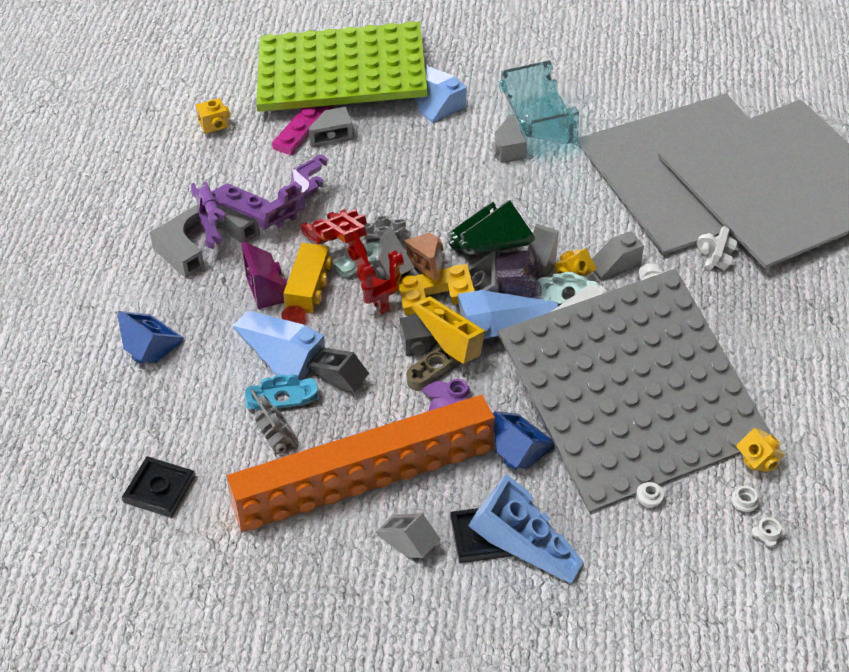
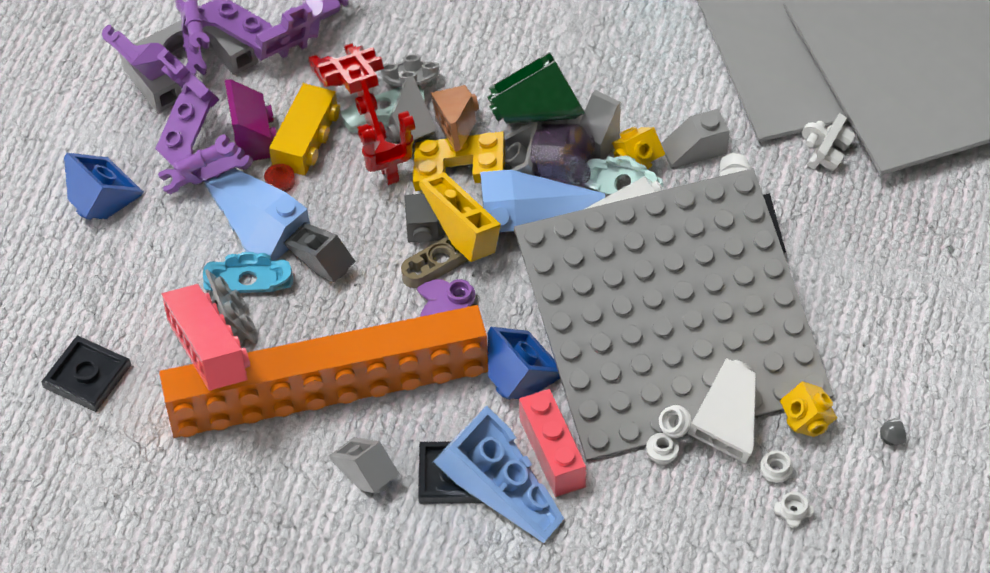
camera: 10 degrees right, 5 degrees up
(213, 275) = (185, 118): none -> medium lavender piece
(261, 444) = (205, 337): none -> coral brick
(561, 500) = (552, 443): none -> coral brick
(652, 466) = (667, 420): none -> white plate
(699, 459) = (728, 412): none -> white slope
(831, 461) = (893, 432): none -> dark grey hinge

